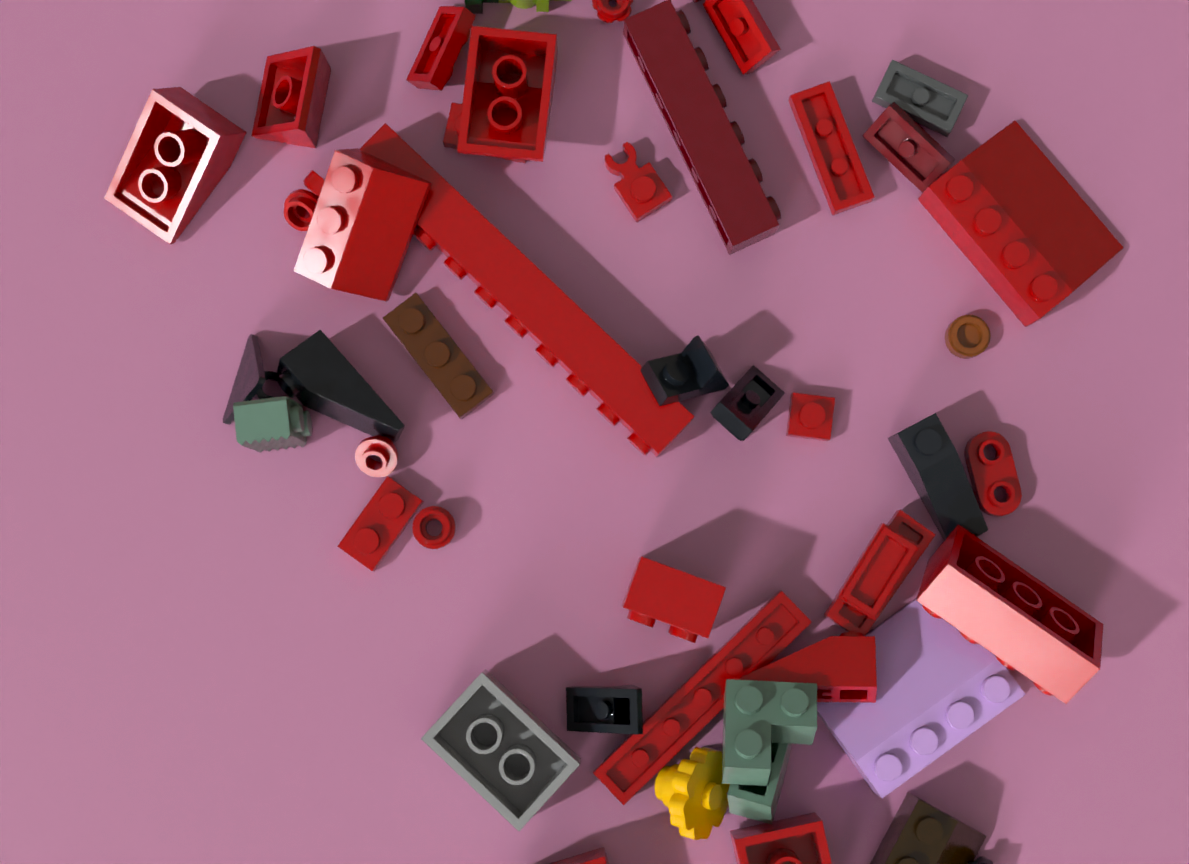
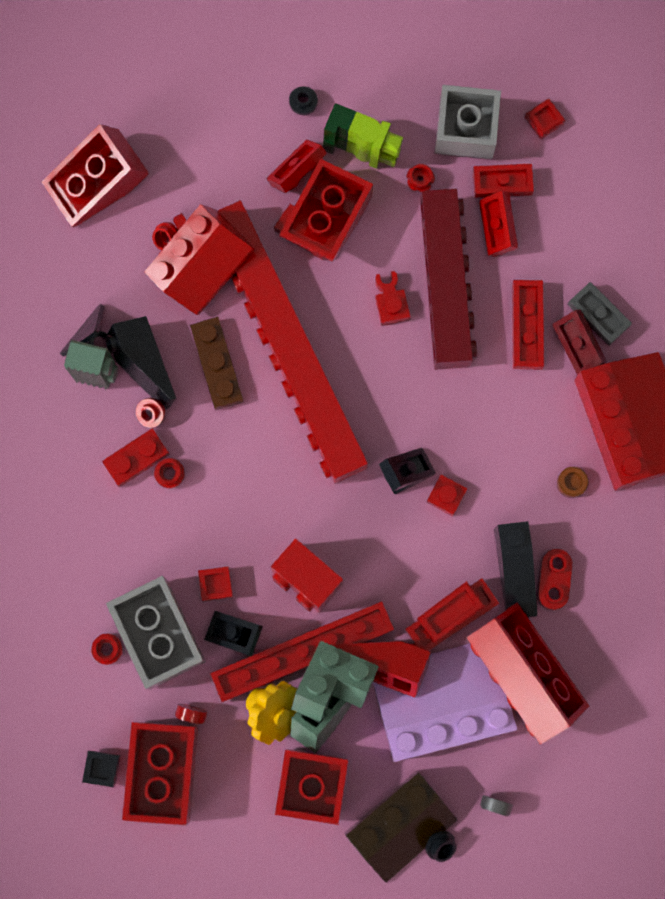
camera: 20 degrees right, 5 degrees down
(292, 97) = (188, 162): red slope -> none
(439, 805) = (98, 644): none -> red plate
(553, 652) = (215, 584): none -> red plate
(588, 835) = (191, 713): none -> red tile
(684, 374) = (372, 435): black slope -> none
(1031, 799) = (496, 806): none -> flat silver tile

